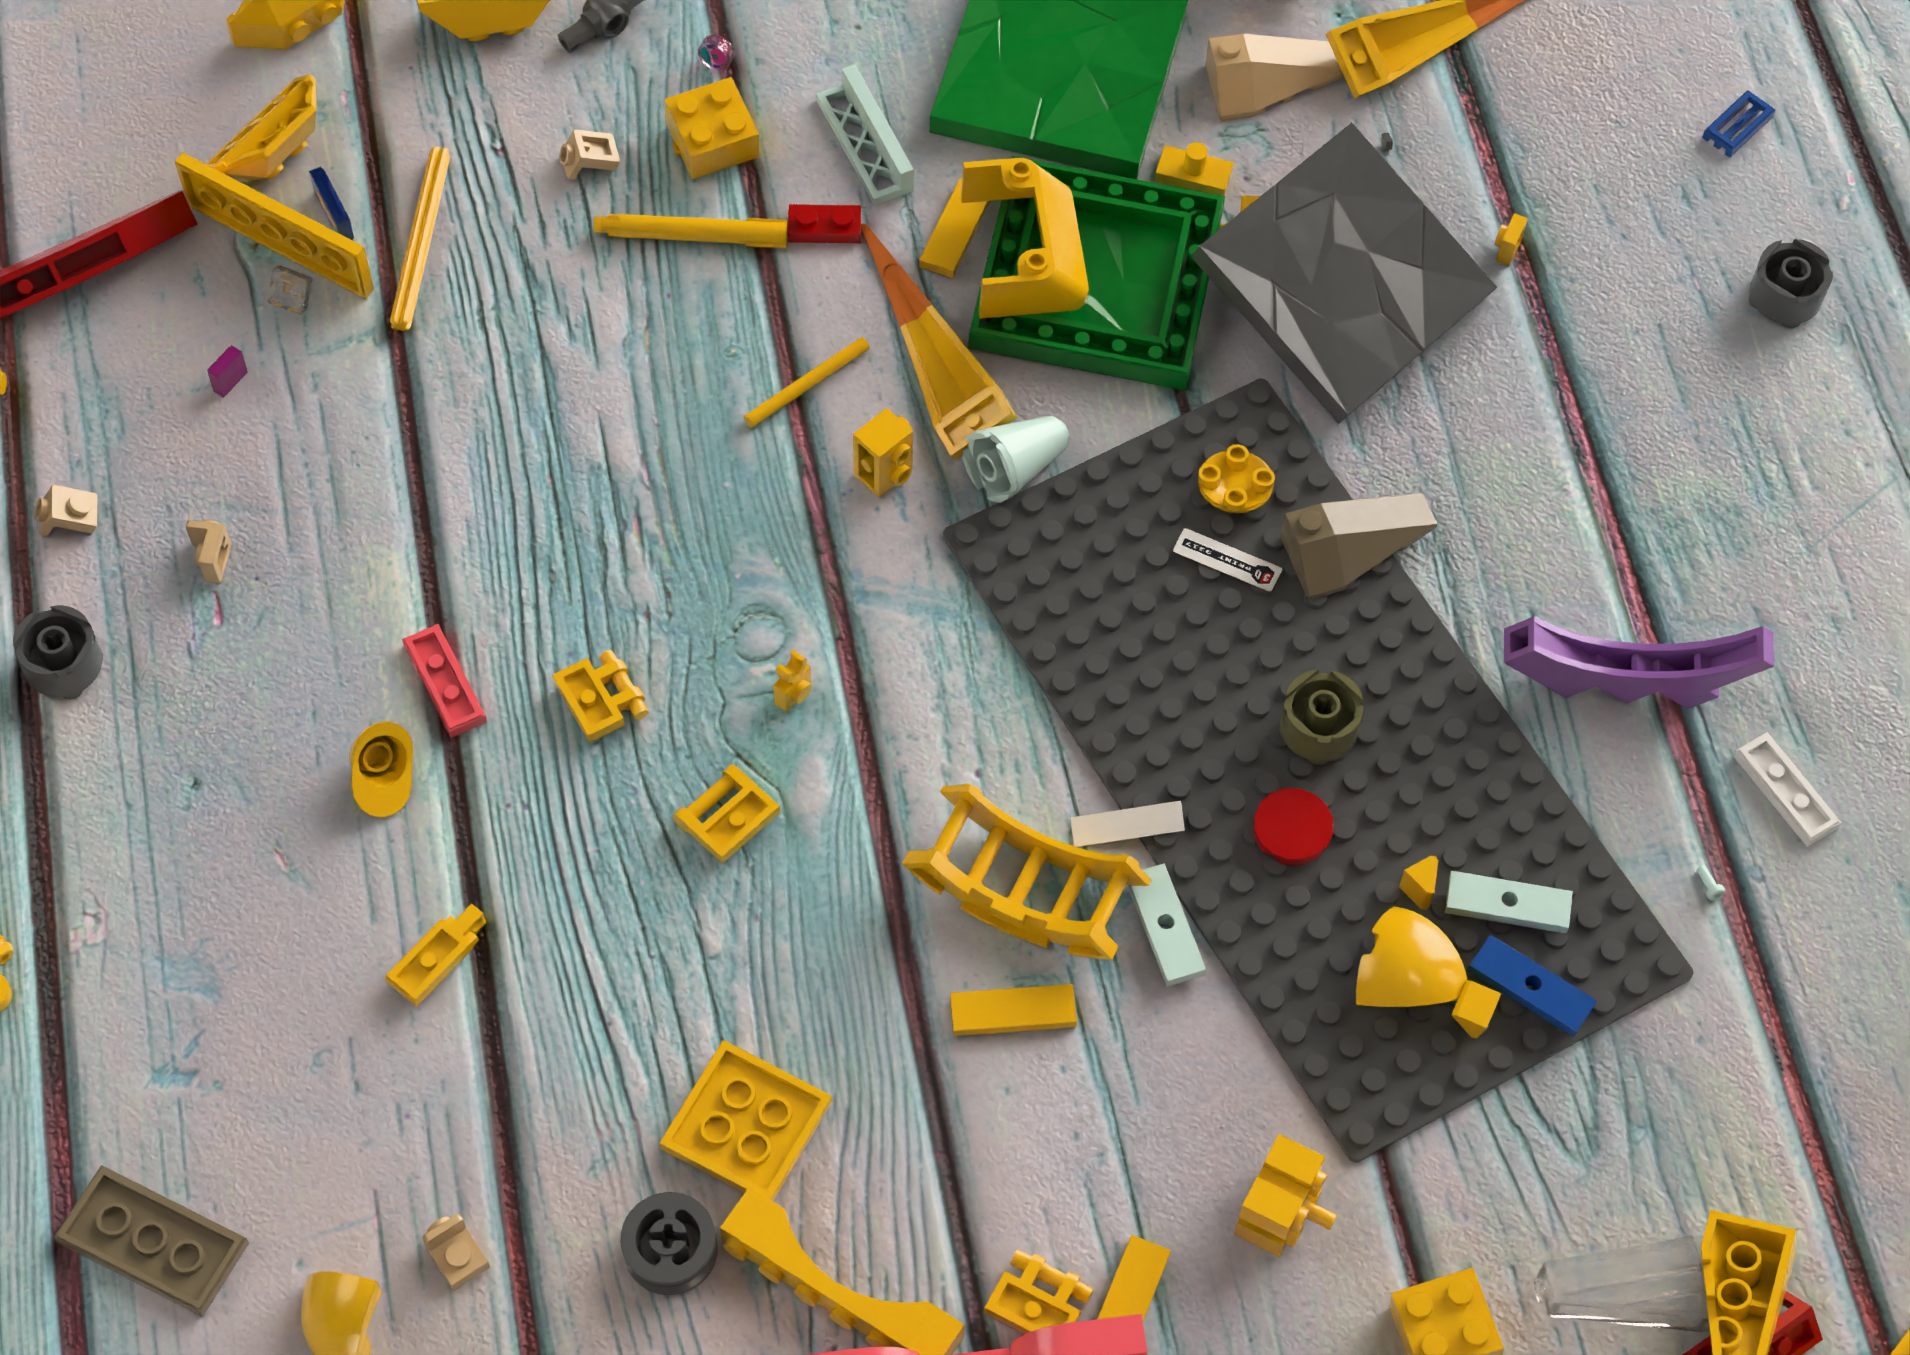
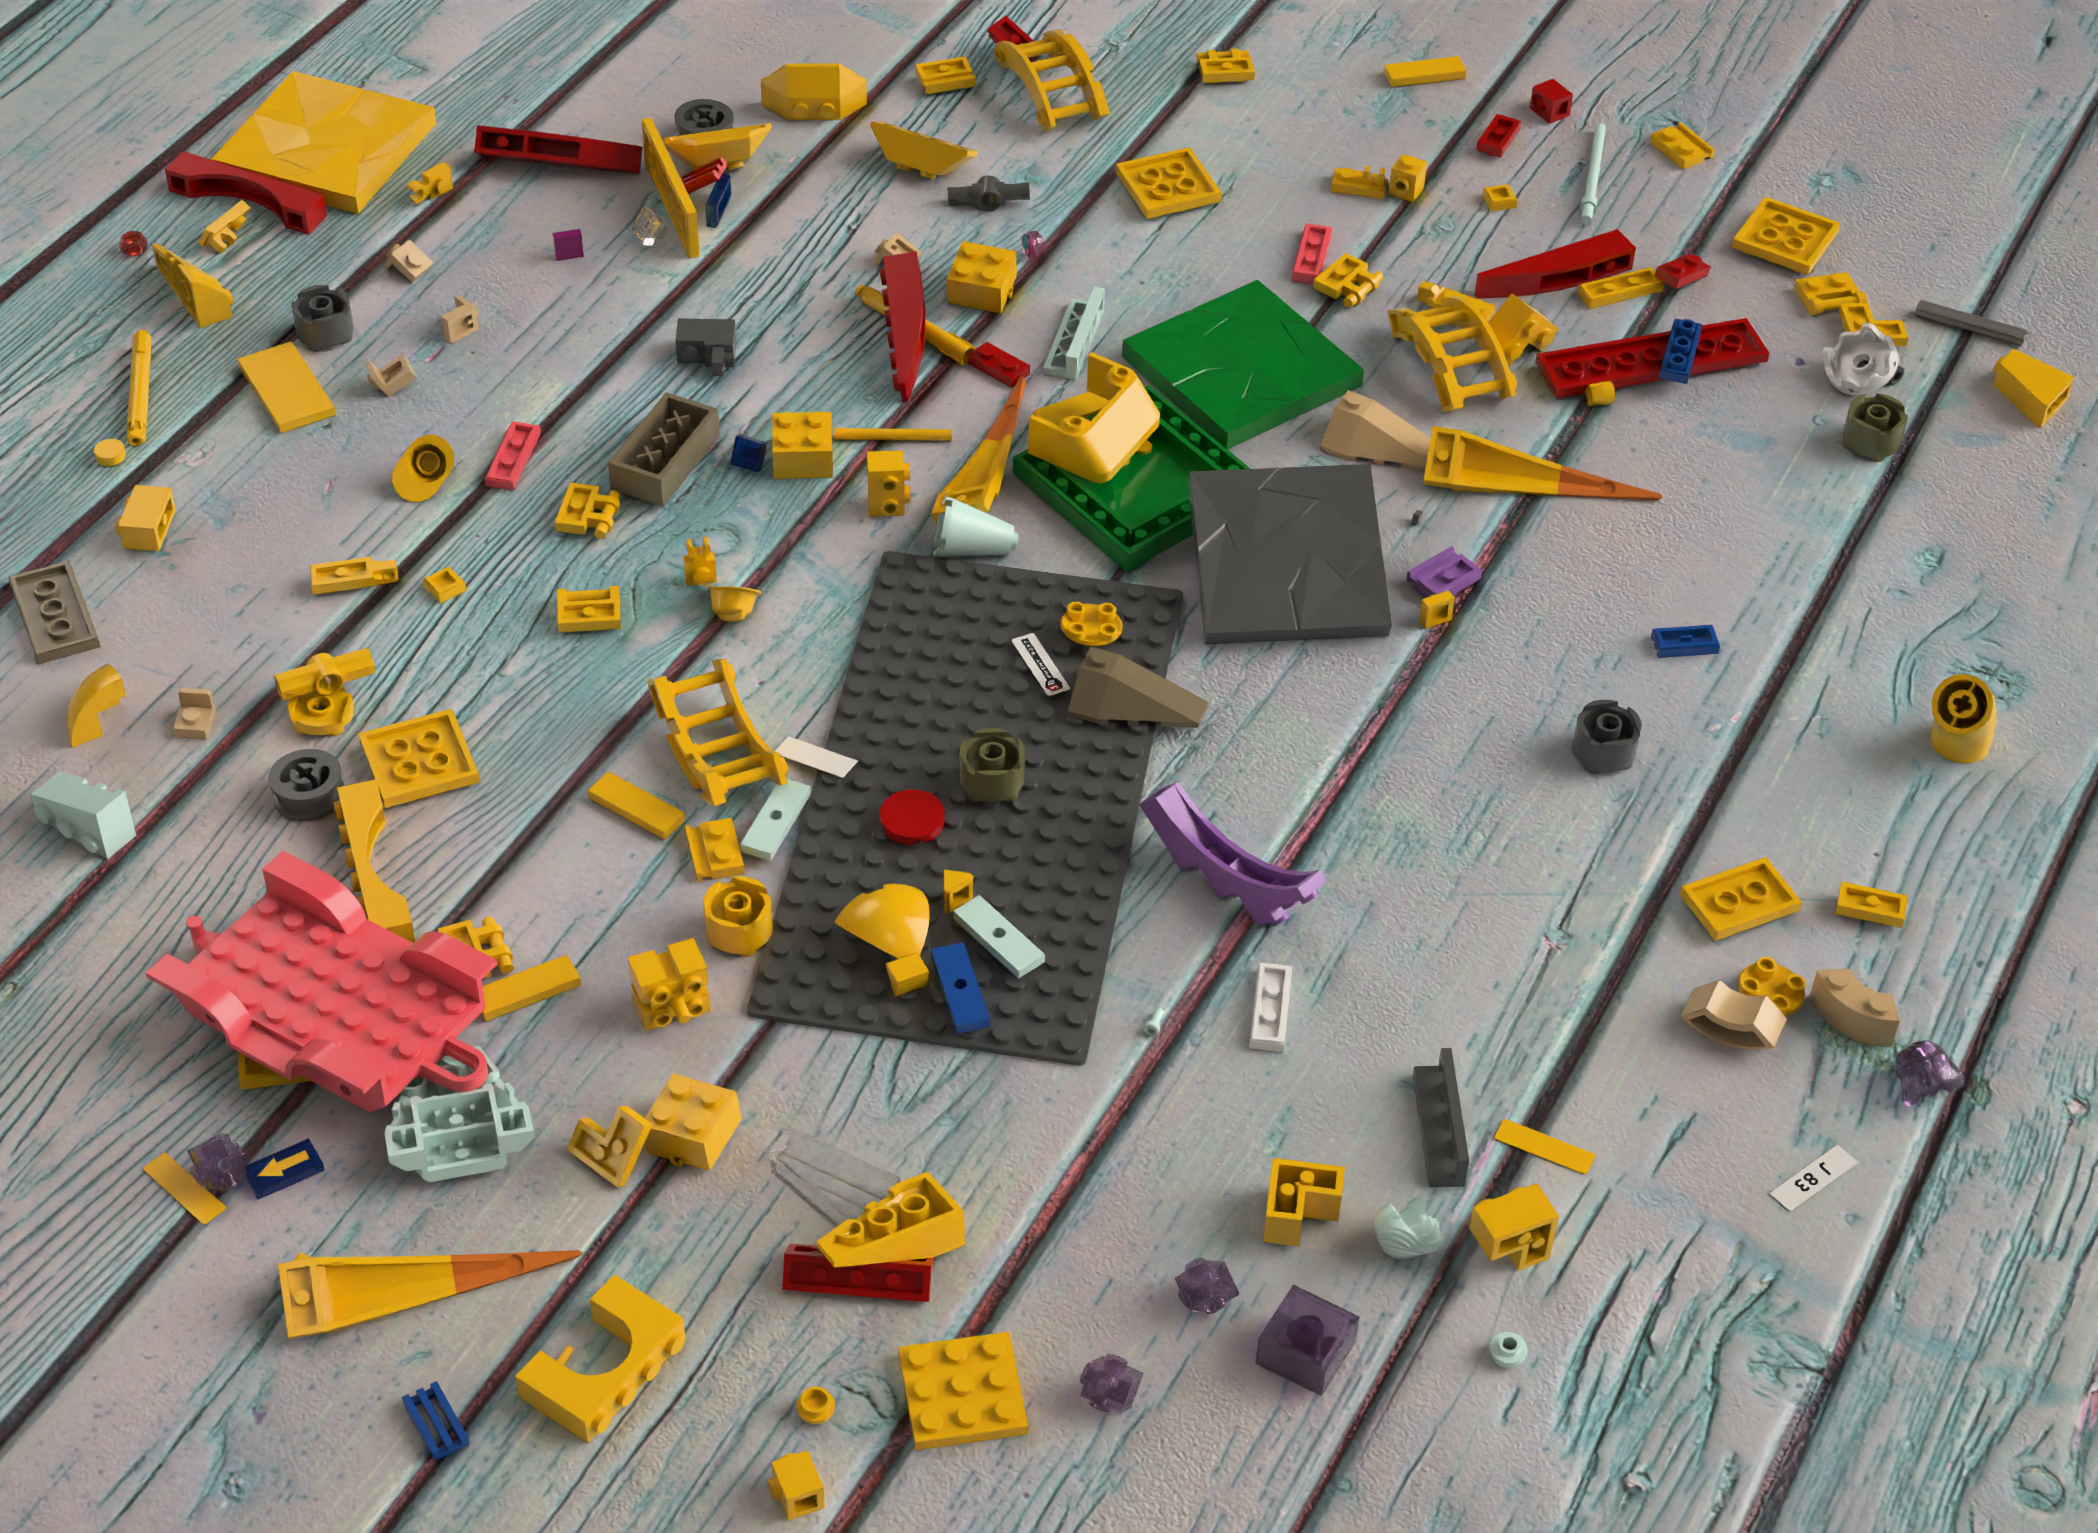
camera: 40 degrees right, 15 degrees down
(100, 767) = (286, 387): none -> yellow tile
(140, 1050) = (146, 518): none -> yellow brick
(210, 100) = (702, 116): none -> dark grey wheel
(211, 672) = (391, 376): none -> tan bracket
(285, 182) = (704, 175): none -> red tile
(419, 239) = (751, 244): yellow axle -> none
(511, 396) = (707, 342): none -> dark grey hinge
(542, 892) = (444, 584): none -> yellow tile
(560, 1102) = (324, 674): none -> yellow piece
(579, 1164) = (329, 721): none -> yellow plate
(612, 565) = (664, 449): none -> dark tan brick
(694, 231) = (906, 317): none -> red slope
(695, 508) = (748, 453): none -> clear blue tile
(742, 460) = (802, 445): none -> yellow brick
(862, 701) = (732, 602): none -> yellow piece
(1138, 1003) = (714, 849): none -> yellow plate
(1194, 169) = (1262, 454): yellow tile -> none
(1270, 1077) = (738, 916): none -> yellow brick
(1478, 194) = (1444, 573): none -> medium lavender plate

